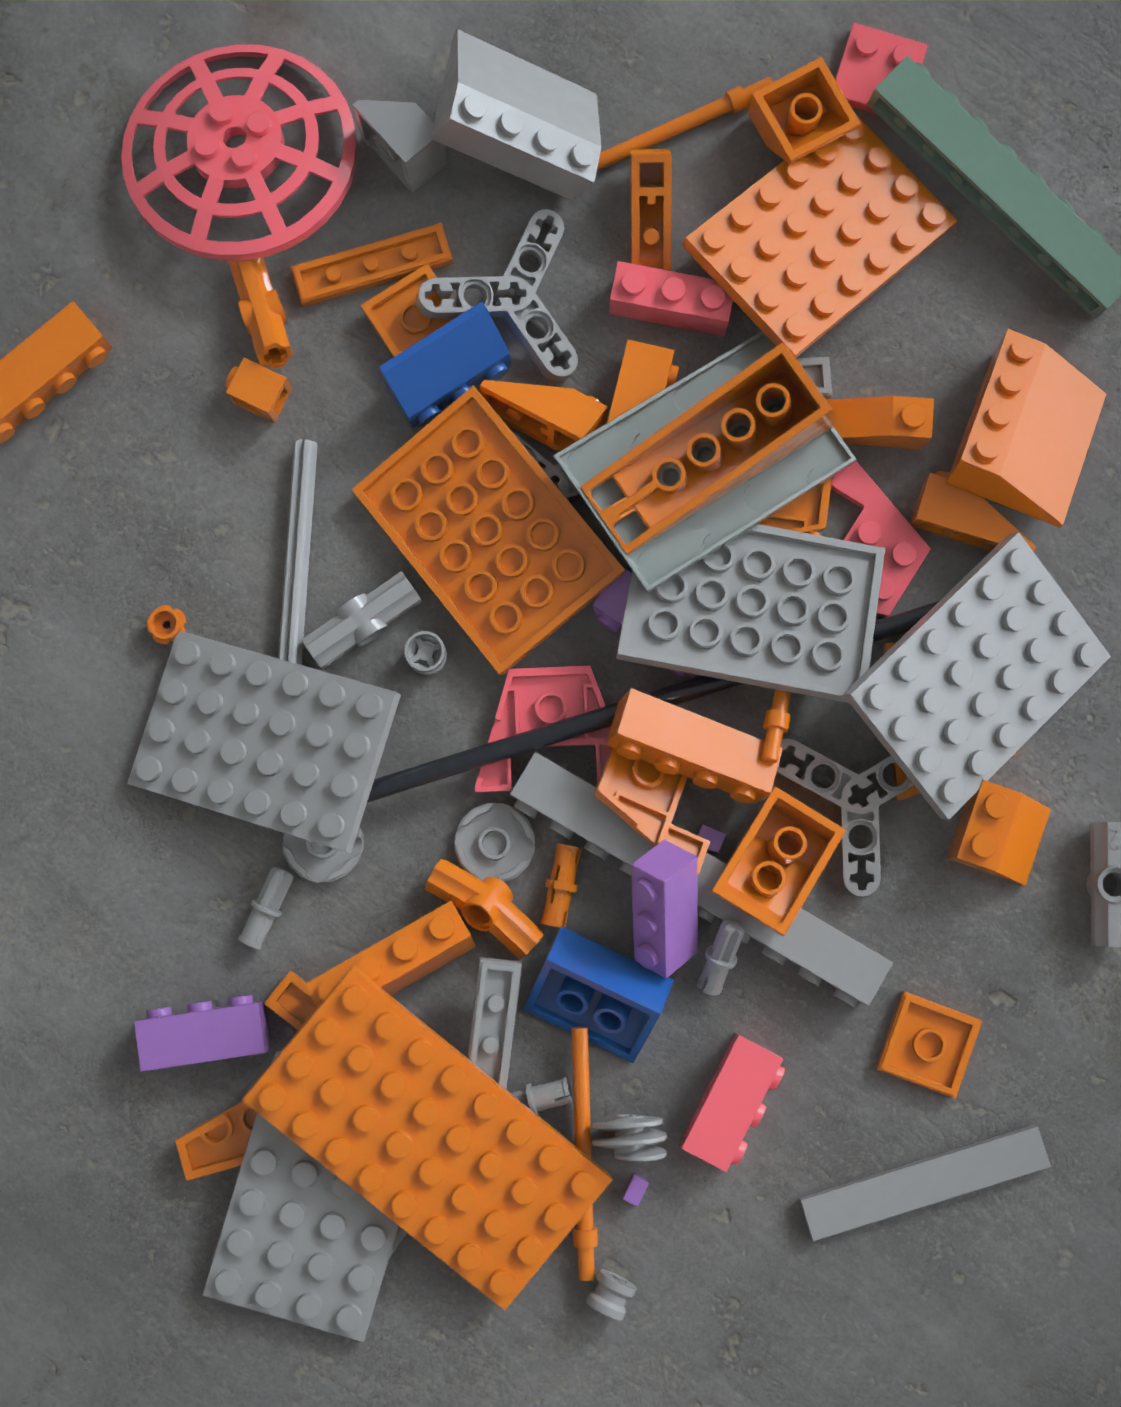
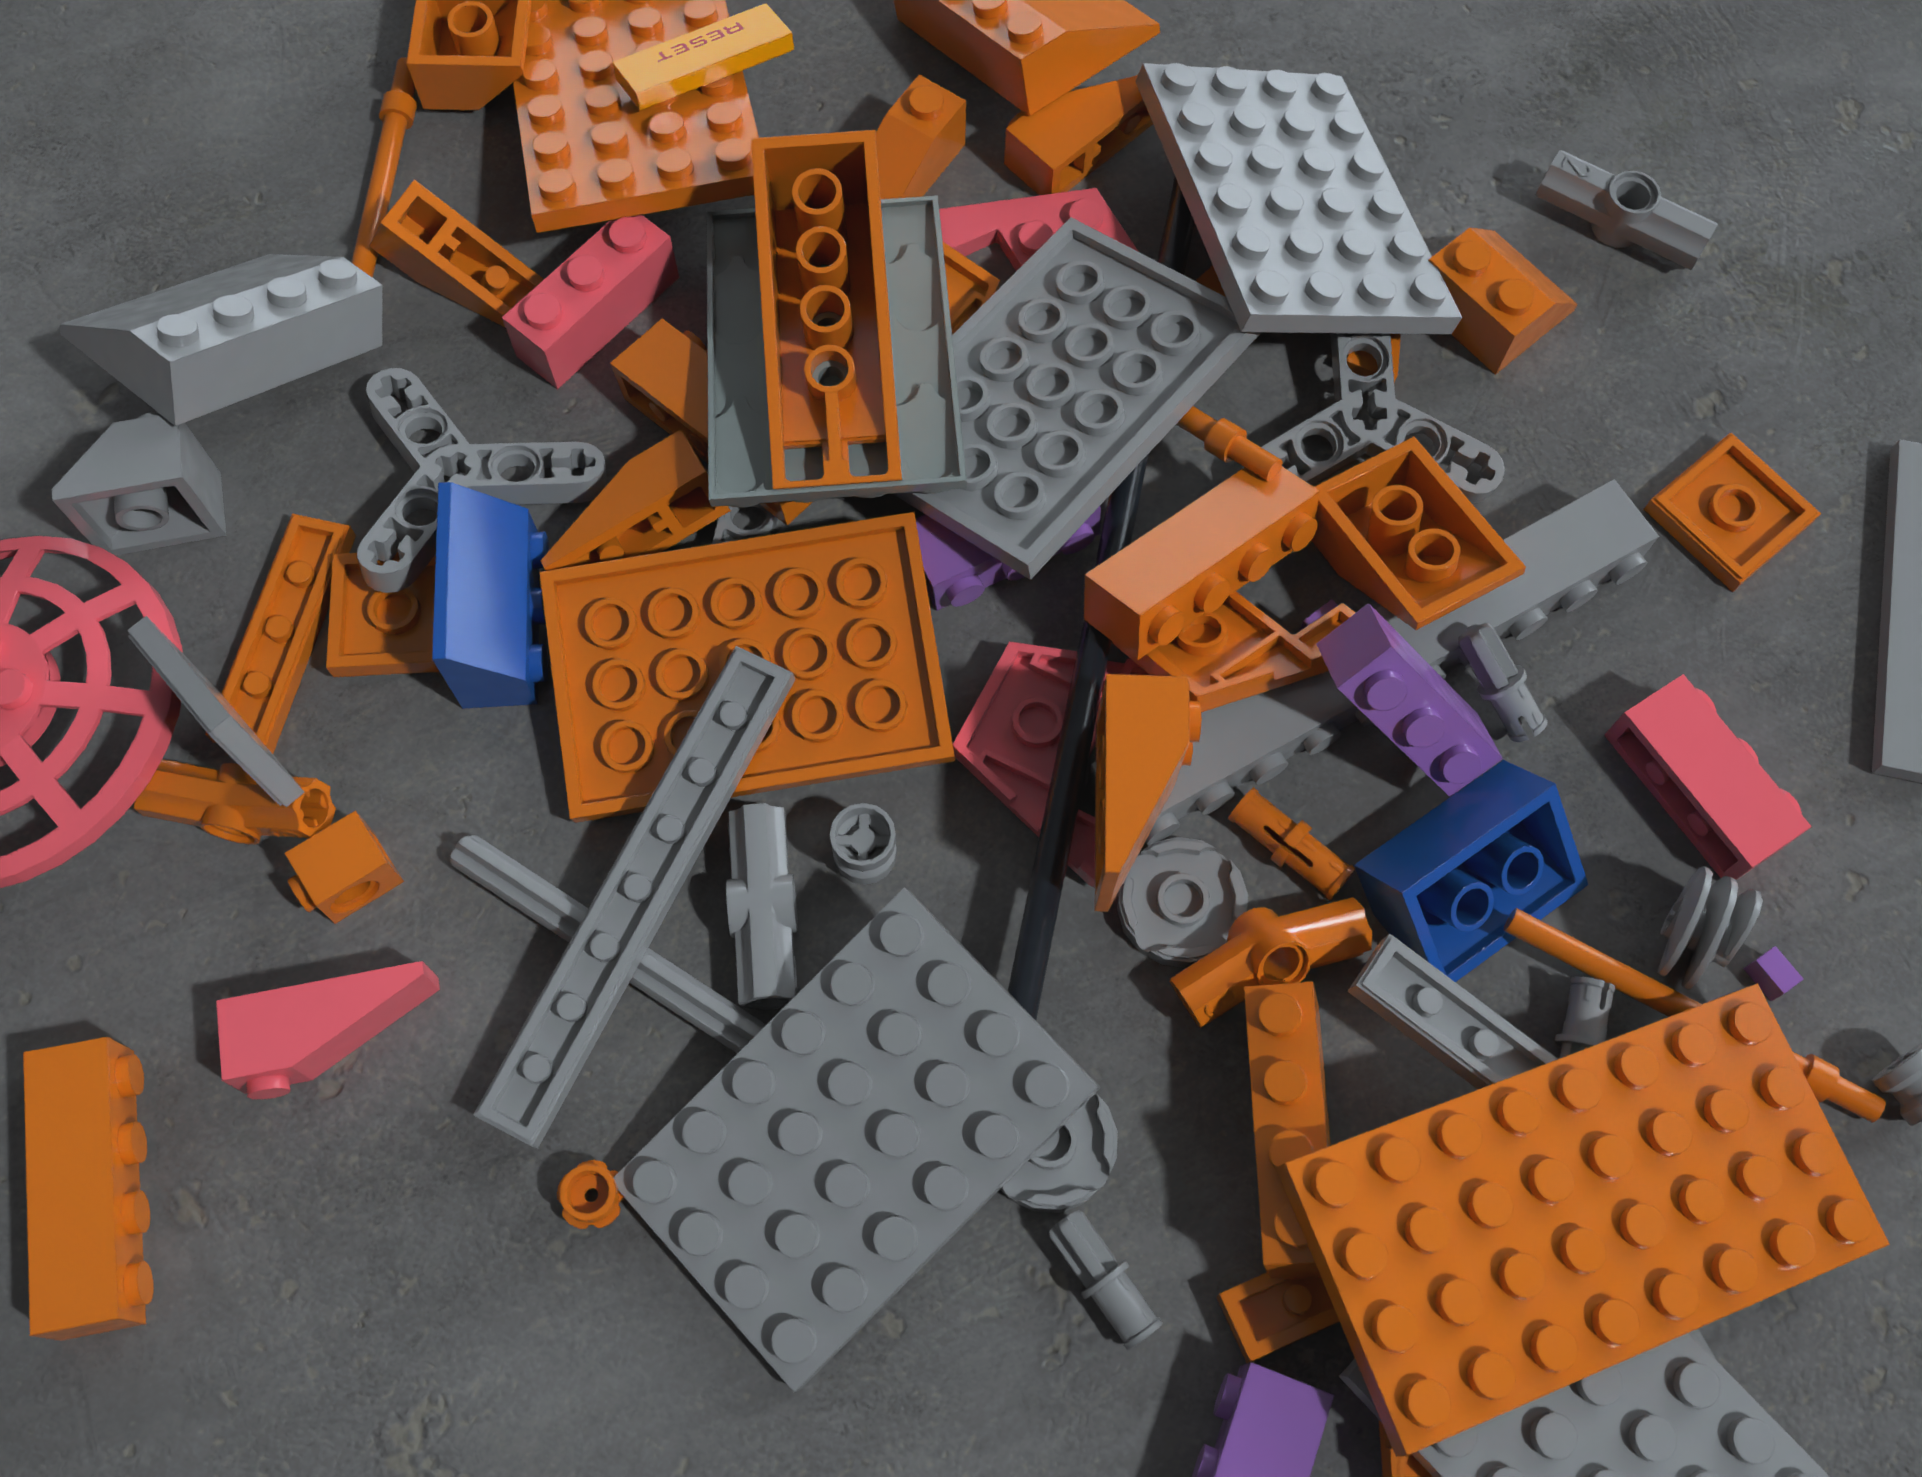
camera: 65 degrees left, 15 degrees down
(163, 427) = (309, 1027): none -> coral slope
(286, 274) = (214, 712): none -> light grey tile
(330, 551) = (634, 899): none -> light grey tile
(530, 779) = (1140, 745): none -> orange slope
(861, 264) = (703, 56): none -> light orange tile

